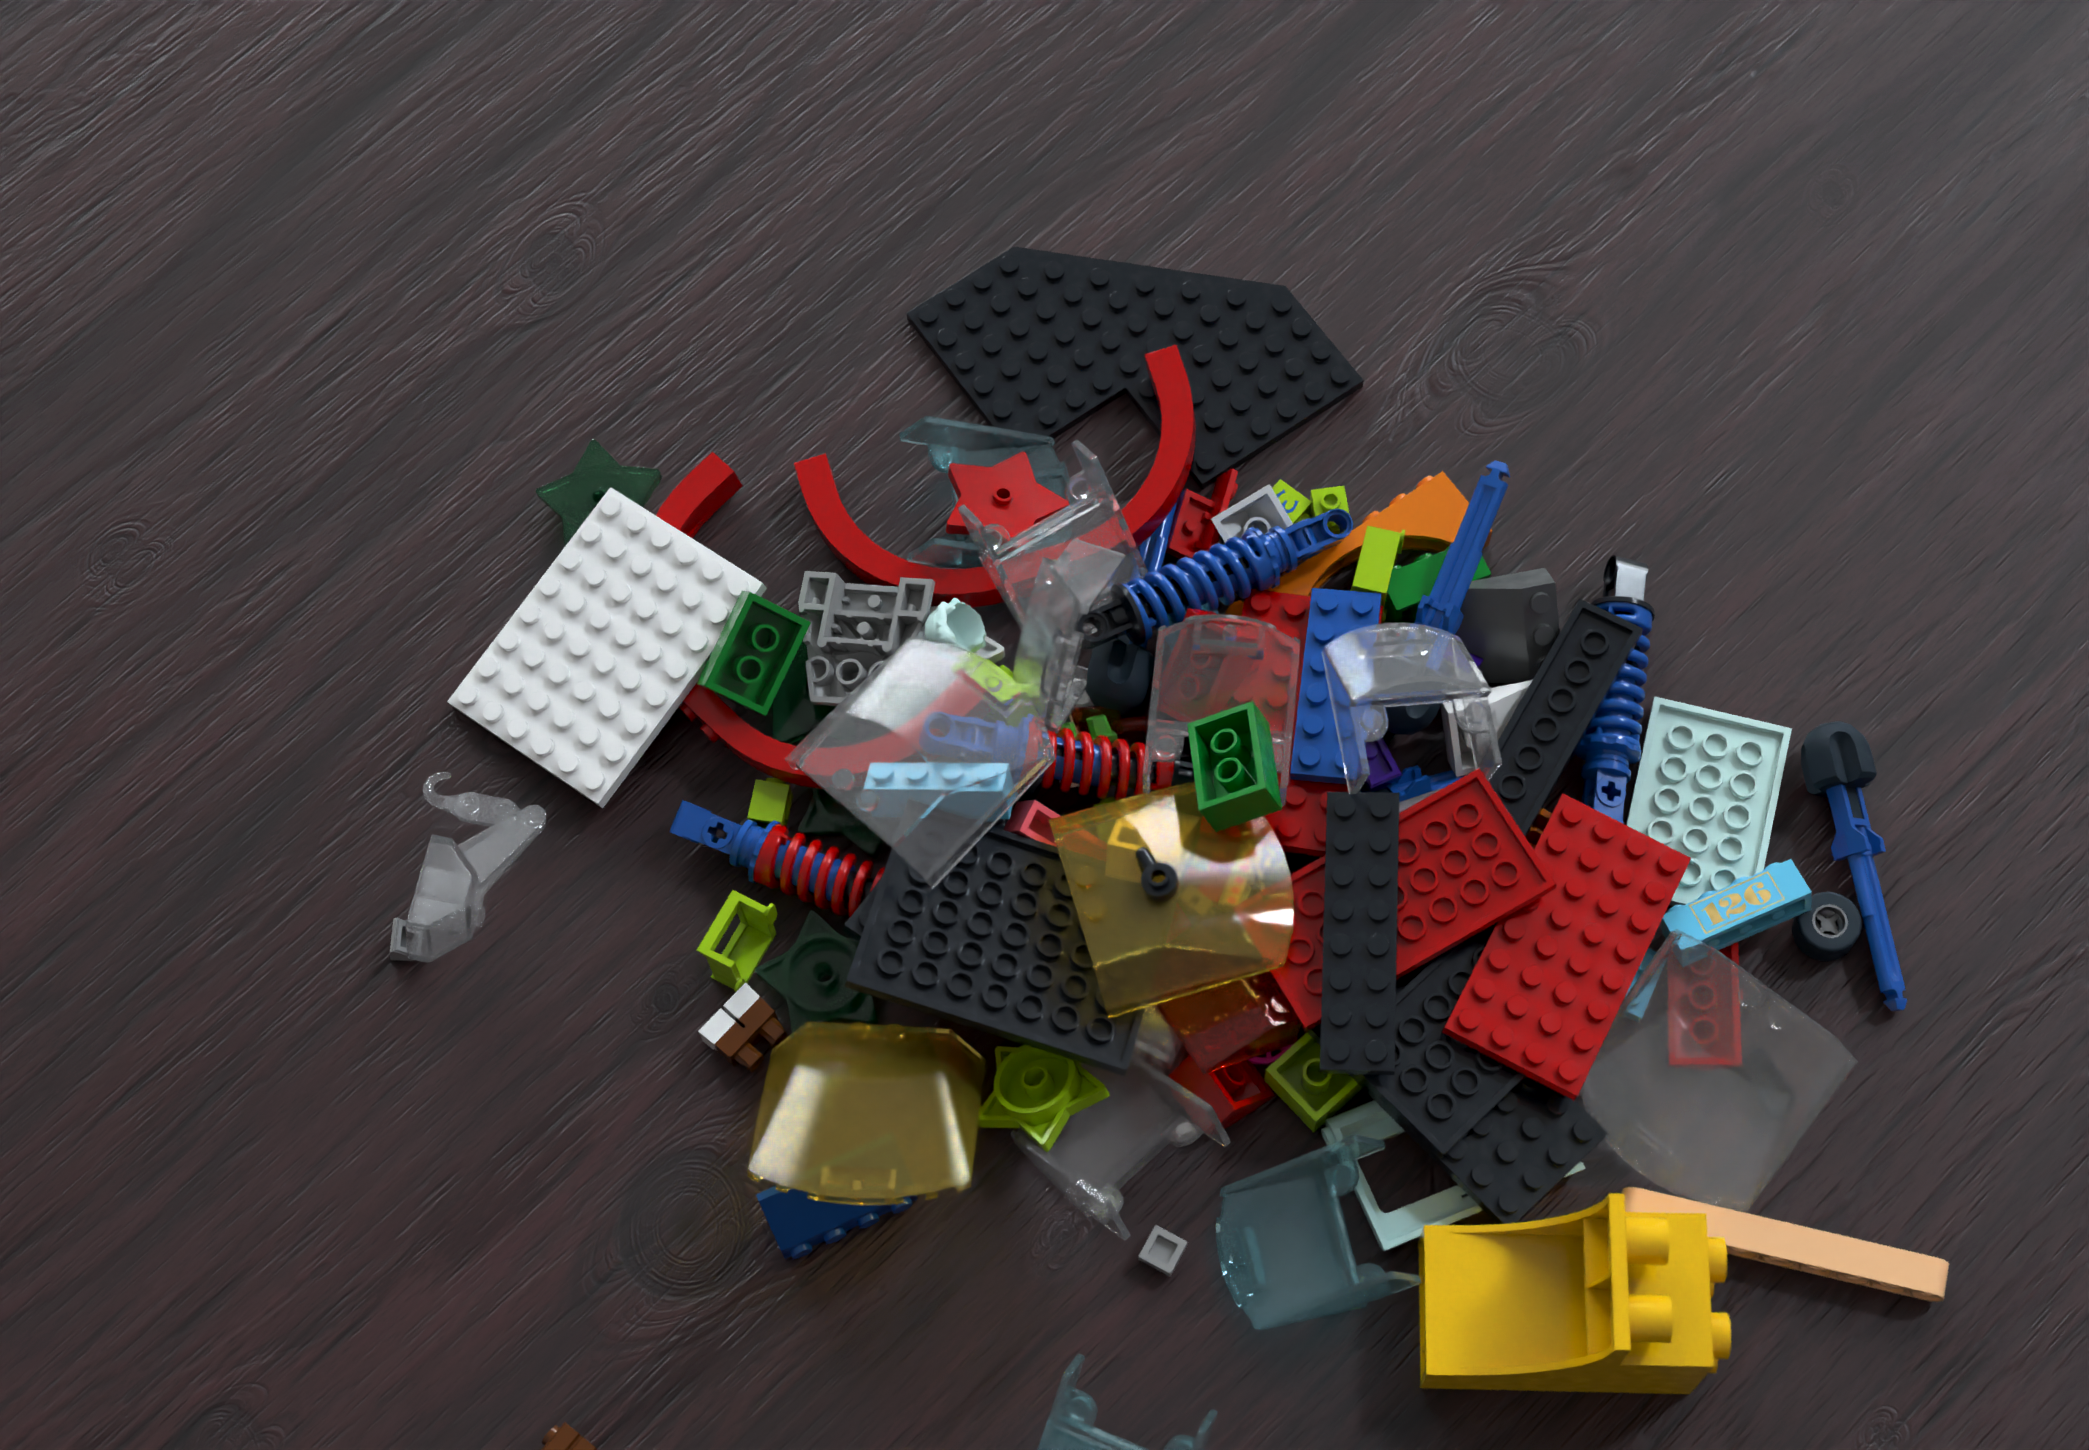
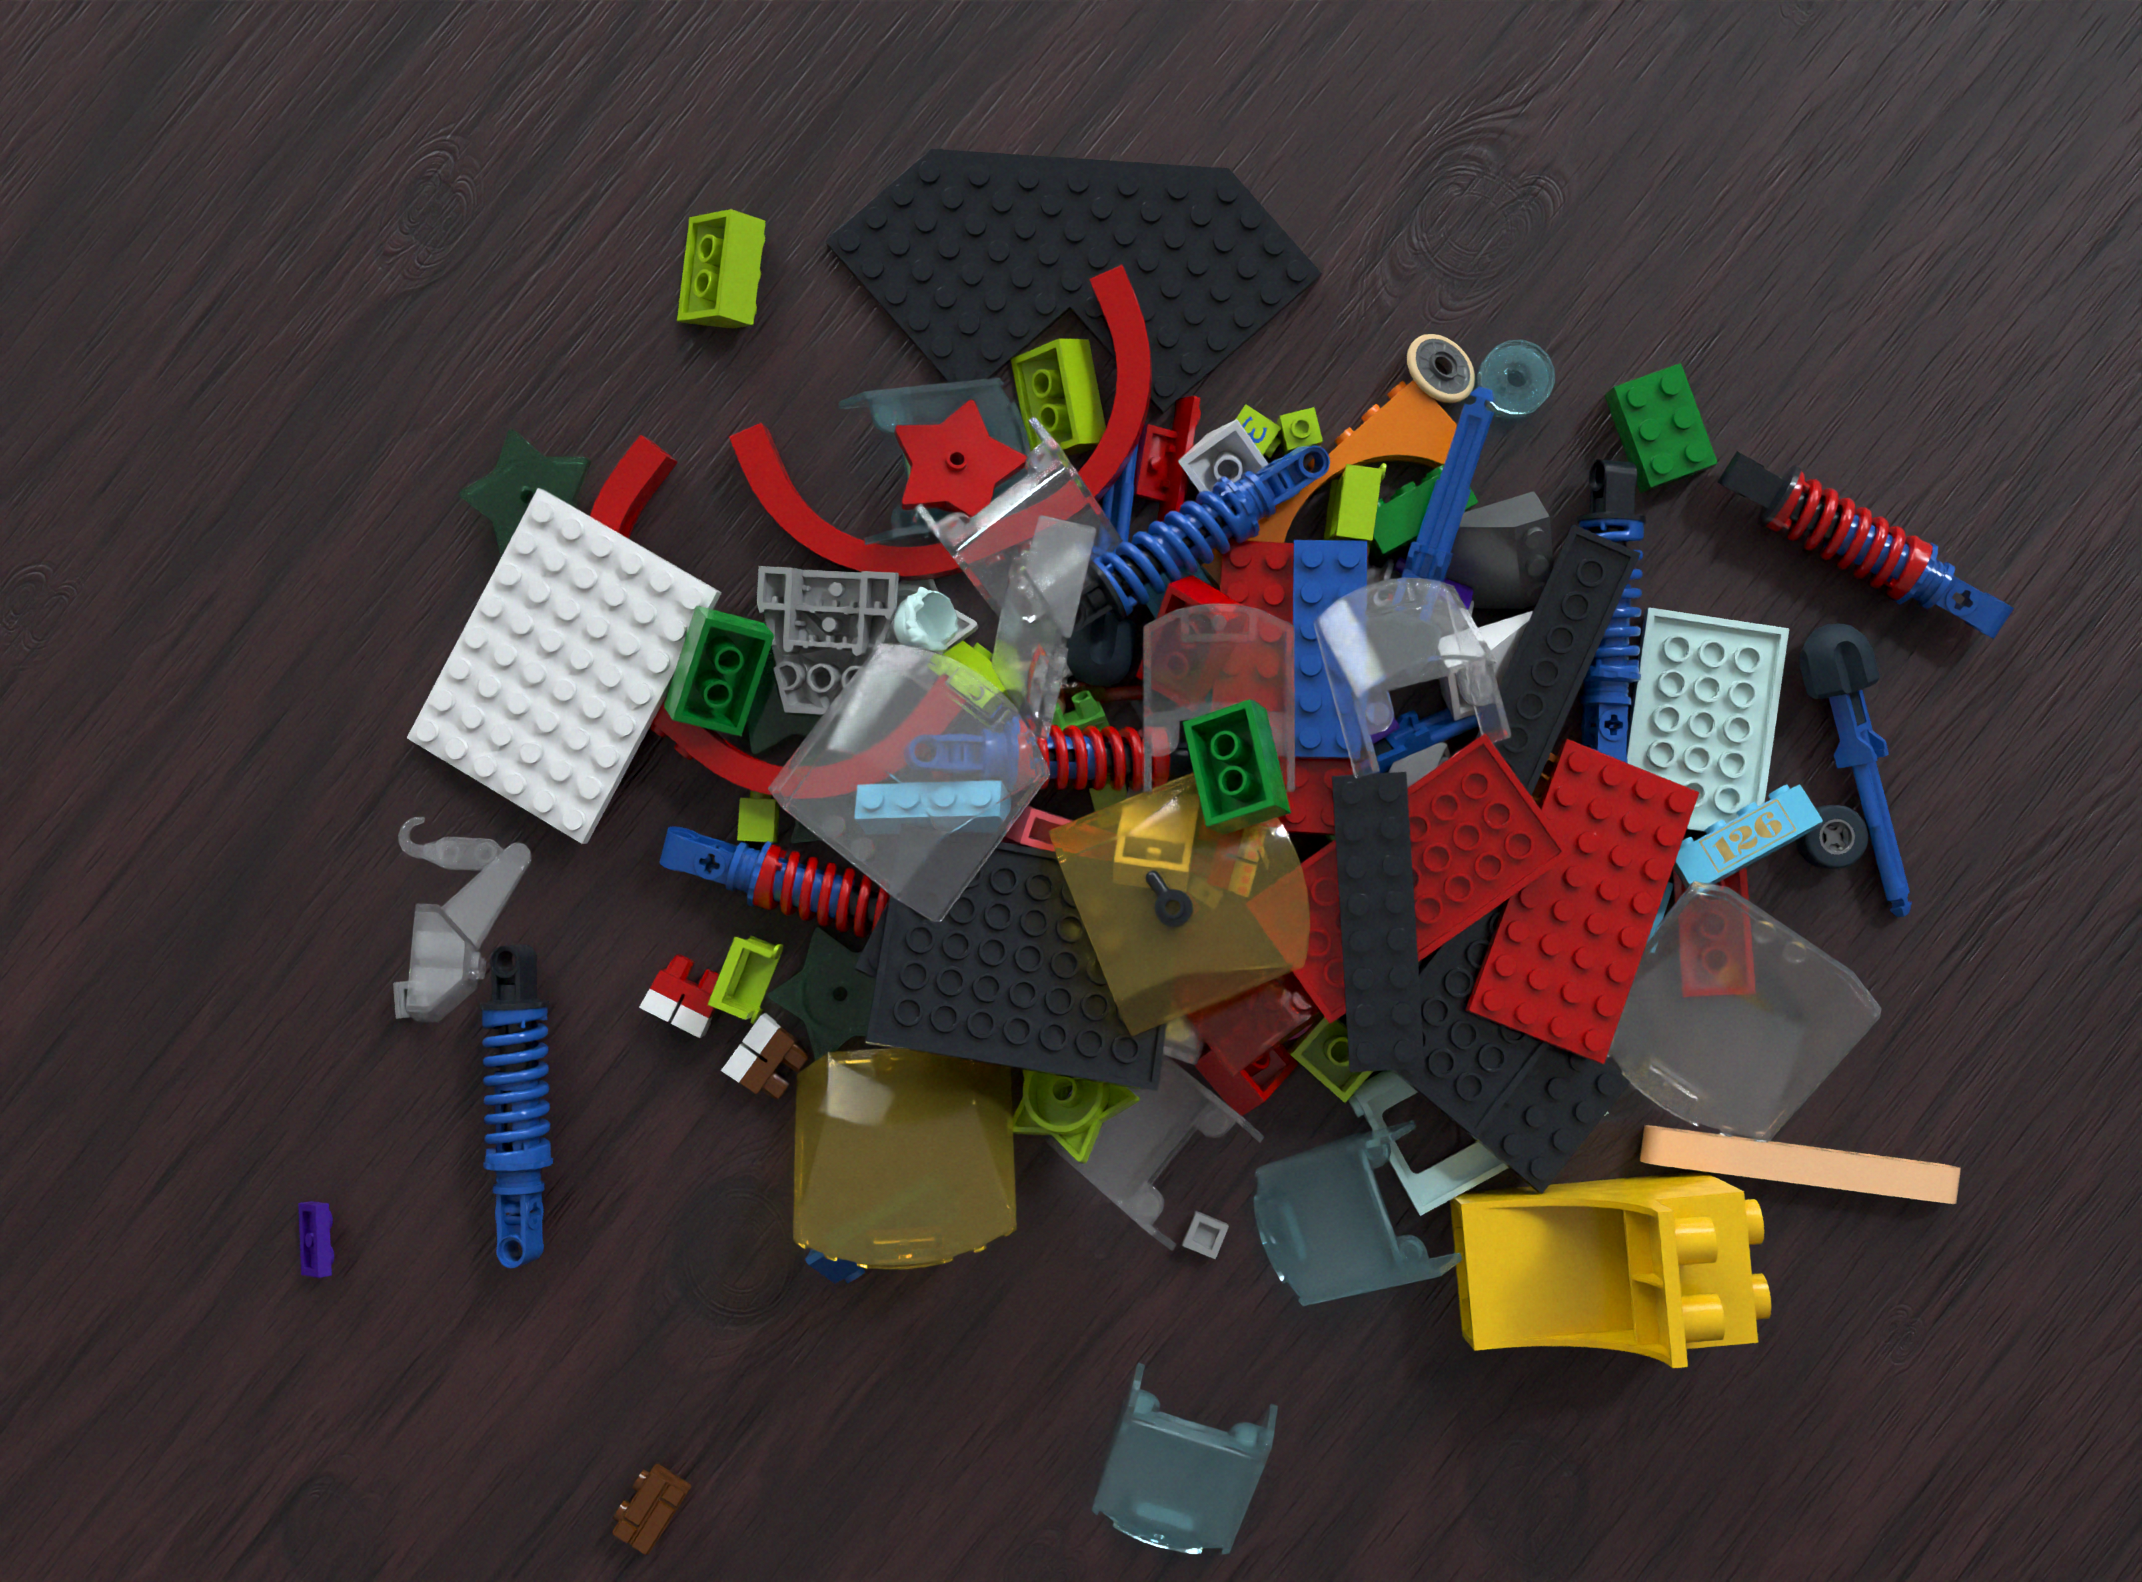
camera: 10 degrees left, 20 degrees up
(269, 1158) = (315, 1245): none -> dark purple plate
(489, 1039) = (518, 1109): none -> piece
(669, 966) = (669, 990): none -> hips
(808, 327) = (721, 269): none -> lime slope
(1116, 441) = (1062, 393): none -> lime slope
(1452, 457) = (1421, 364): none -> dark grey wheel
(1535, 503) = (1530, 364): none -> clear light blue wheel
(1675, 539) = (1661, 428): none -> green brick
(1906, 679) = (1895, 560): none -> piece

